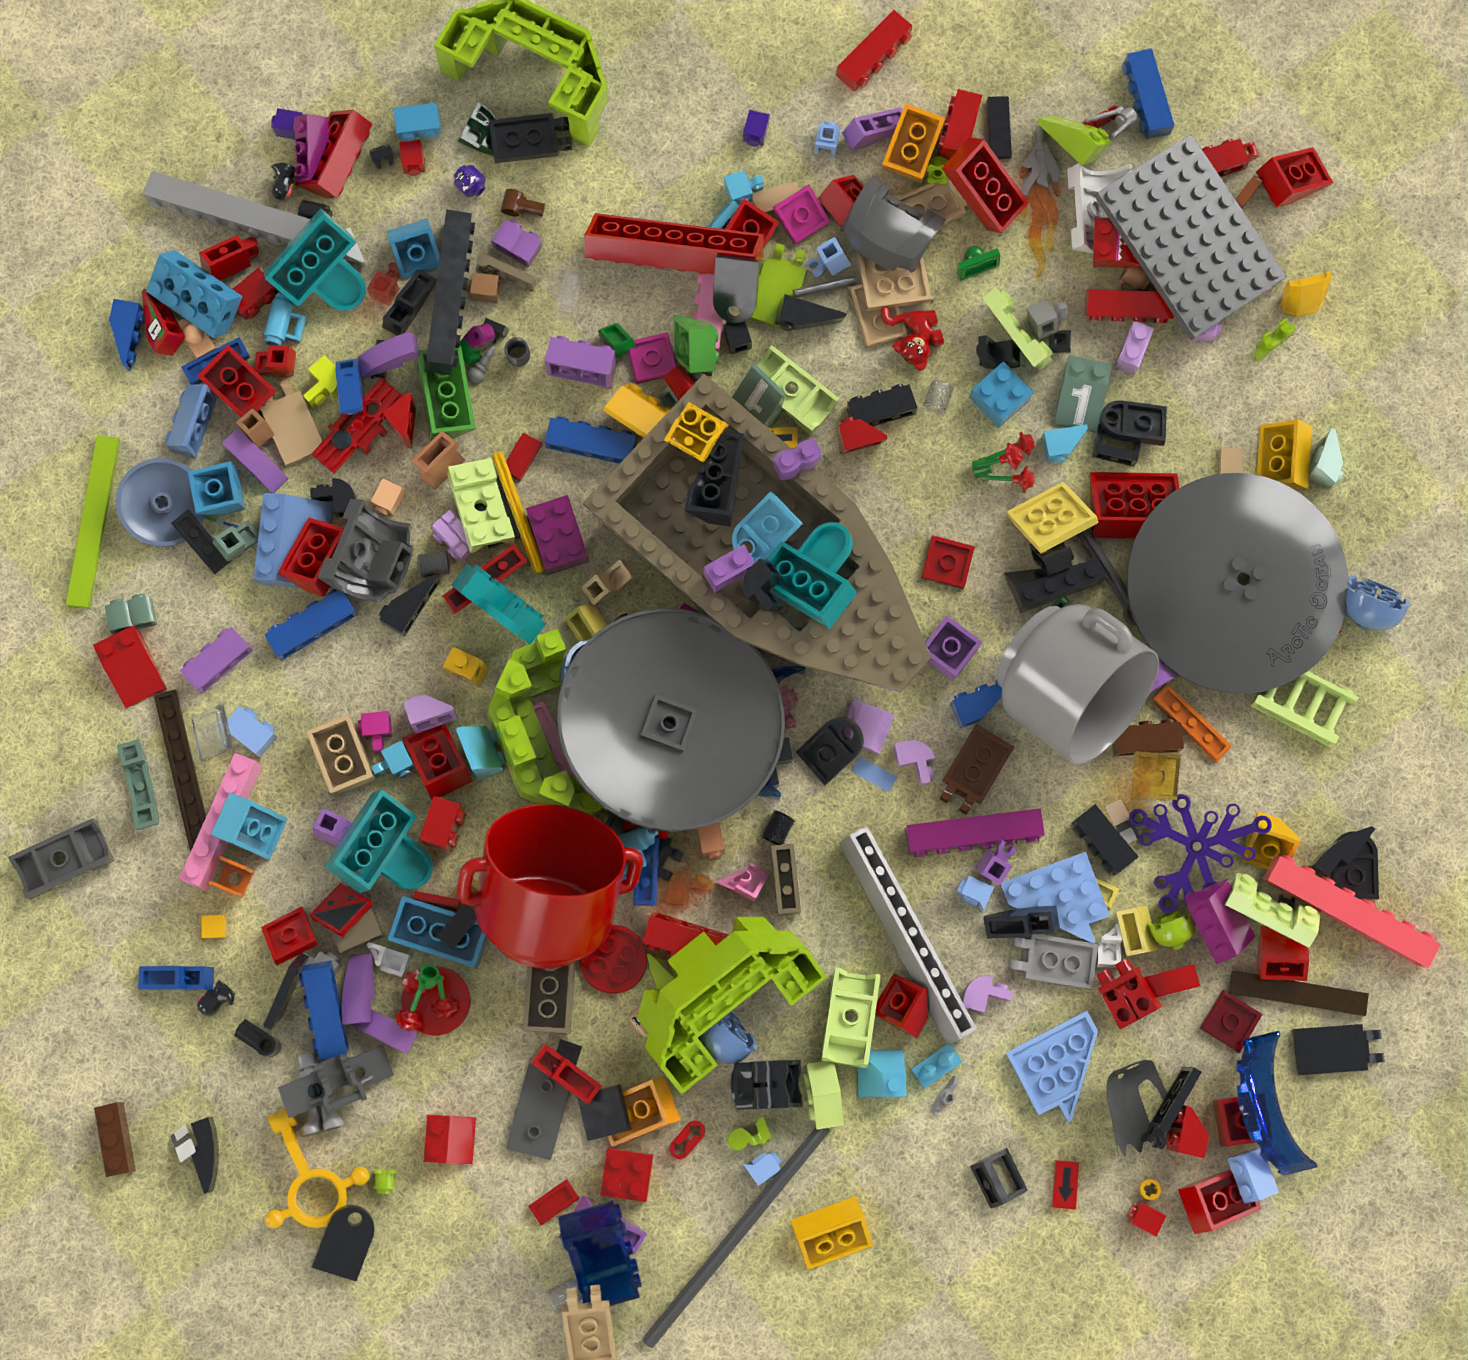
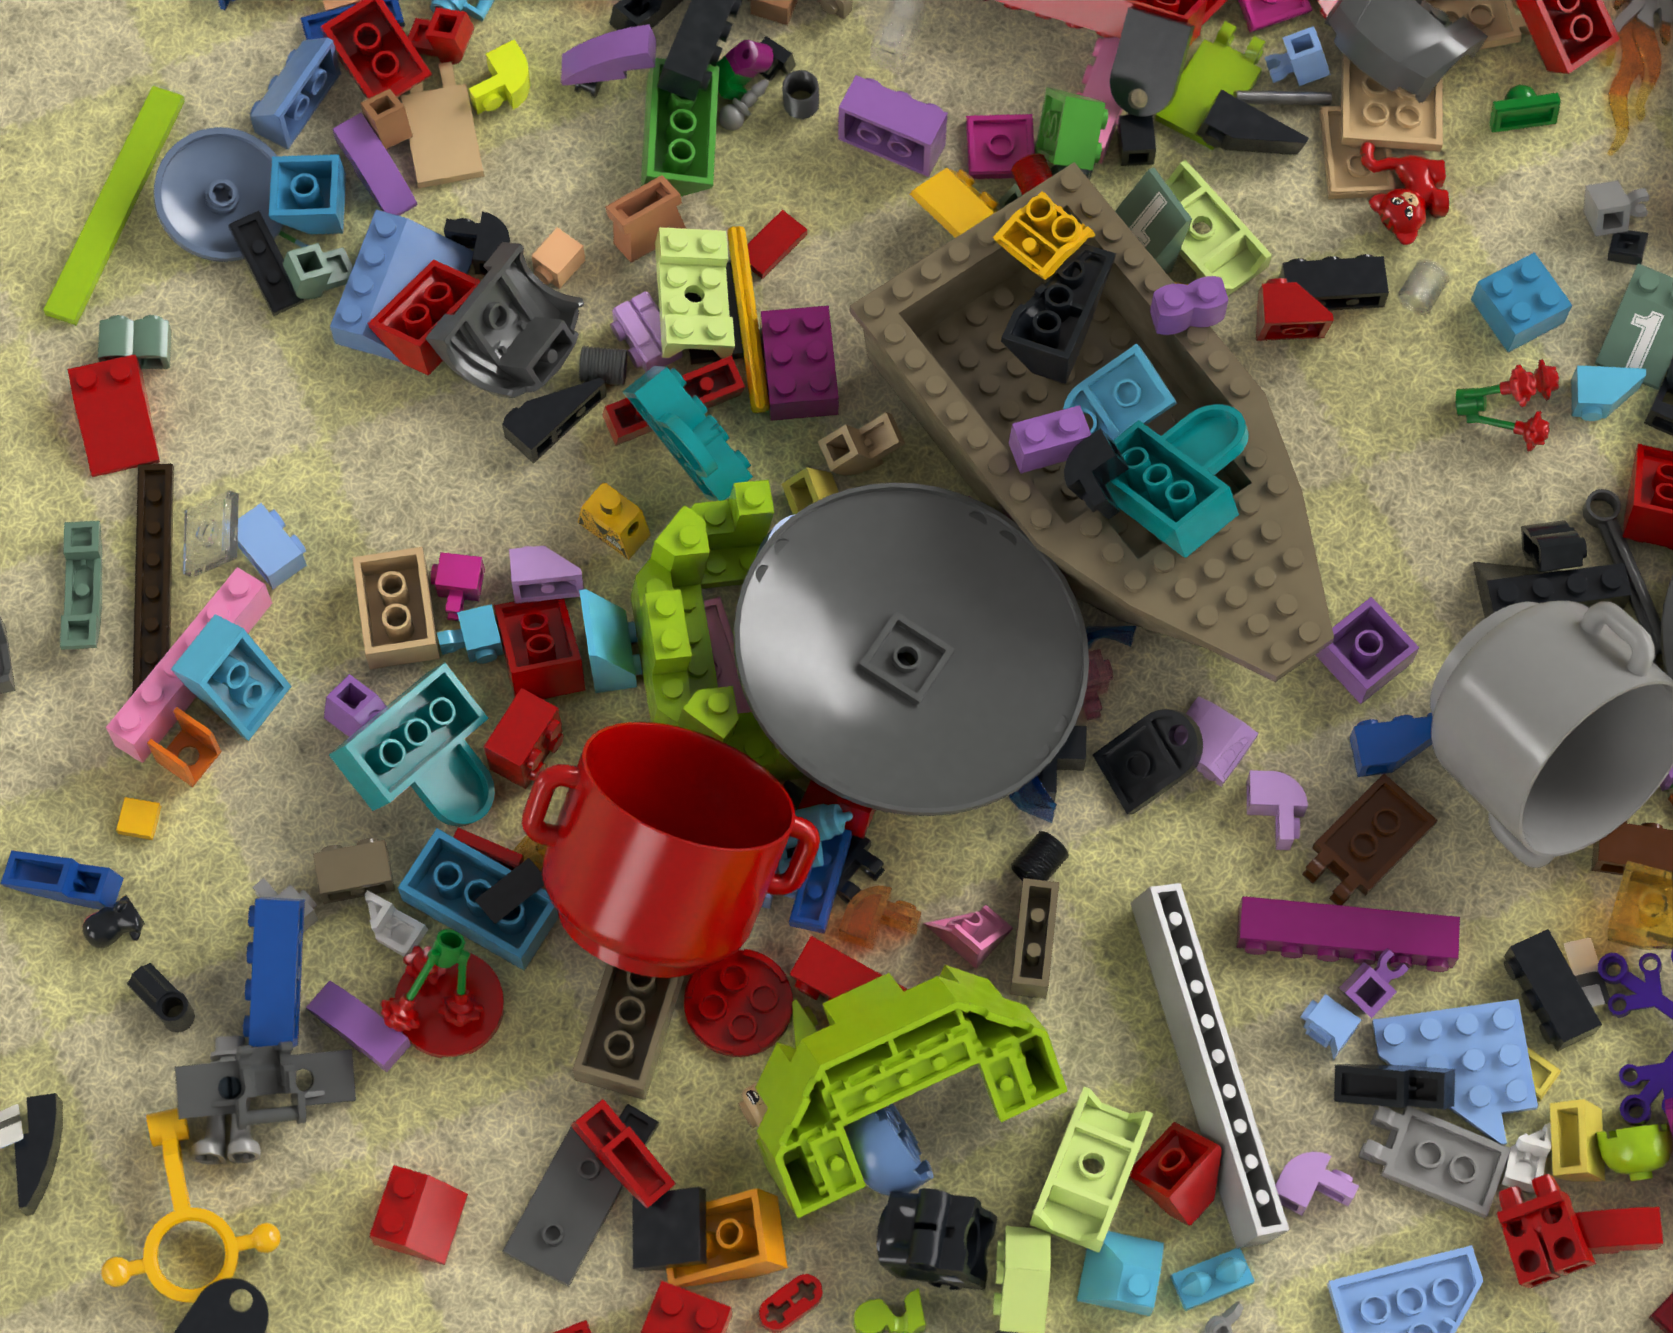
camera: 15 degrees right, 10 degrees down
(215, 660) = (244, 433): medium lavender brick -> none
(285, 991) = (222, 930): black tile -> none
(289, 936) = (250, 854): red tile -> none
(310, 624) = (398, 412): blue brick -> none
(341, 910) = (338, 831): red tile -> none
(349, 386) = (540, 87): blue slope -> none
(358, 990) = (333, 959): medium lavender slope -> none
(362, 430) = (543, 156): red piece -> none
(384, 1181) = (301, 1255): lime brick -> none
(401, 418) = (606, 149): red slope -> none
(588, 440) = (871, 236): blue brick -> none
(617, 339) = (957, 105): green tile -> none
(711, 842) = (931, 850): nougat hips -> none
(874, 774) = (1208, 816): light blue sticker -> none
(948, 562) = (1389, 528): red tile -> none
(994, 353) = (1520, 240): black brick -> none
(1001, 305) = (1549, 176): yellowish green piece -> none
(1052, 517) = (1565, 491): light yellow plate -> none

